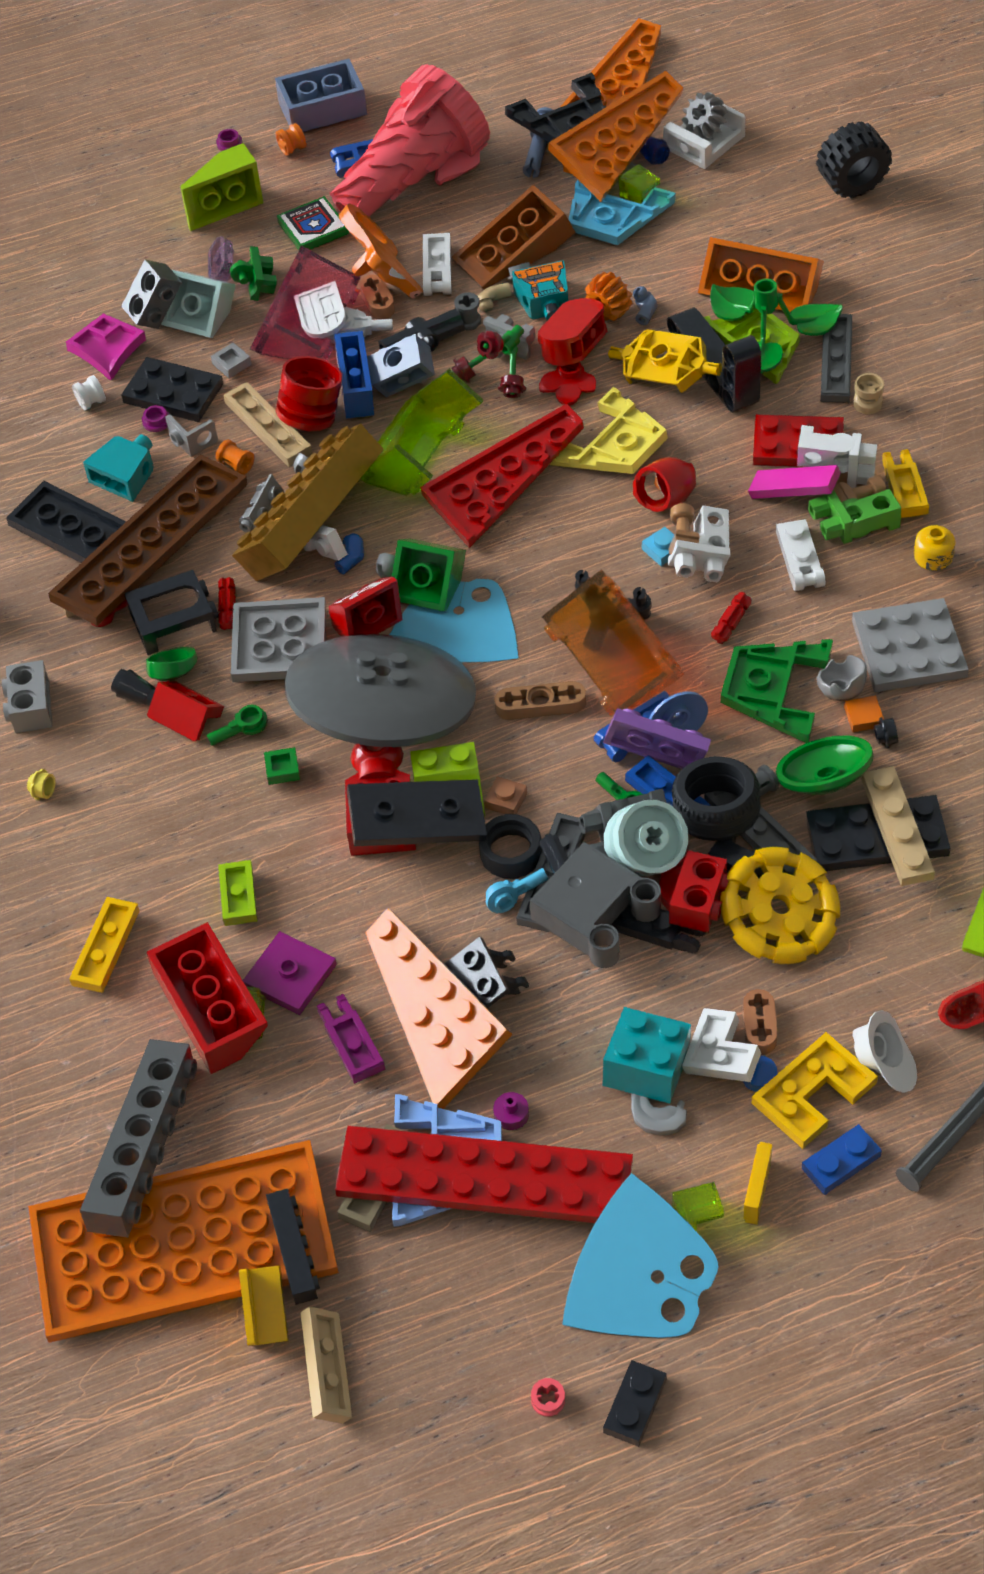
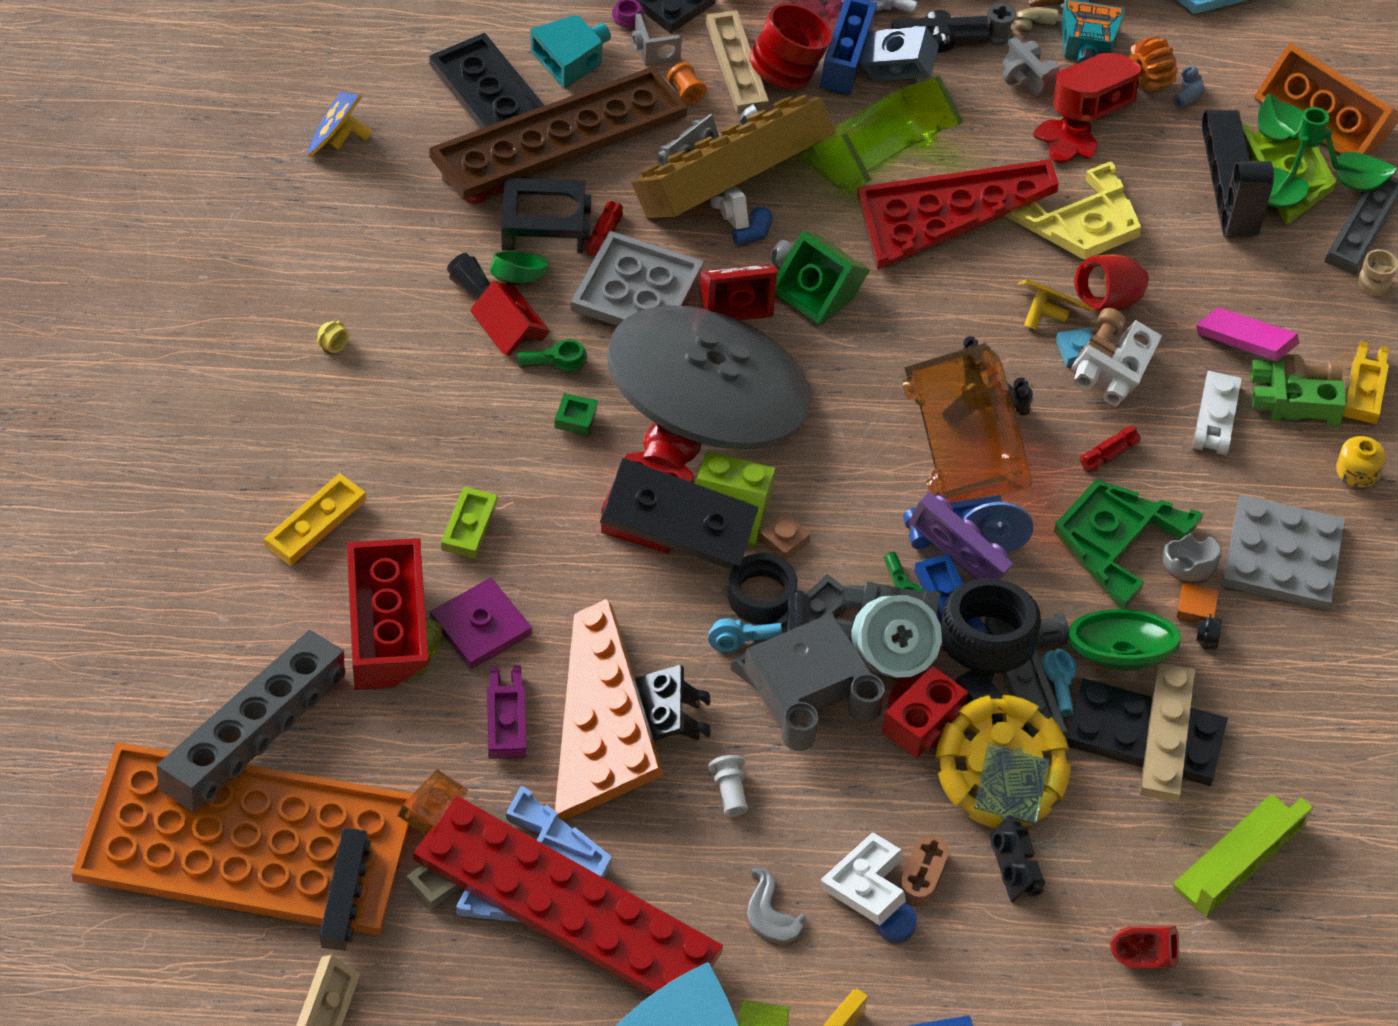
camera: 15 degrees right, 0 degrees up
(28, 696) = (362, 244): light grey brick -> none
(263, 1305) = (288, 934): yellow panel -> none
(328, 1141) = (430, 801): none -> clear orange plate
(476, 635) = (837, 362): medium azure piece -> none
(489, 347) = (997, 68): dark red plant -> none
(511, 1110) = (628, 851): magenta tile -> none
(549, 690) = (875, 466): medium nougat beam -> none
(565, 1015) = (729, 779): none -> white pin
(618, 524) = (1041, 306): none -> yellow shield
(646, 1055) = (788, 853): teal brick -> none
(658, 931) = (866, 736): black hinge -> none
(680, 366) = (1188, 167): yellow plate -> none
(778, 436) = (1278, 293): red plate -> none
(786, 812) = (1060, 669): none -> medium azure plate
(786, 1094) = (964, 938): yellow plate -> none
(797, 920) = (1011, 783): none -> clear light blue piece
(824, 978) = (1012, 847): none -> black hinge
(838, 450) = (1317, 327): white hips -> none
(885, 1051) = (1034, 951): white piece -> none

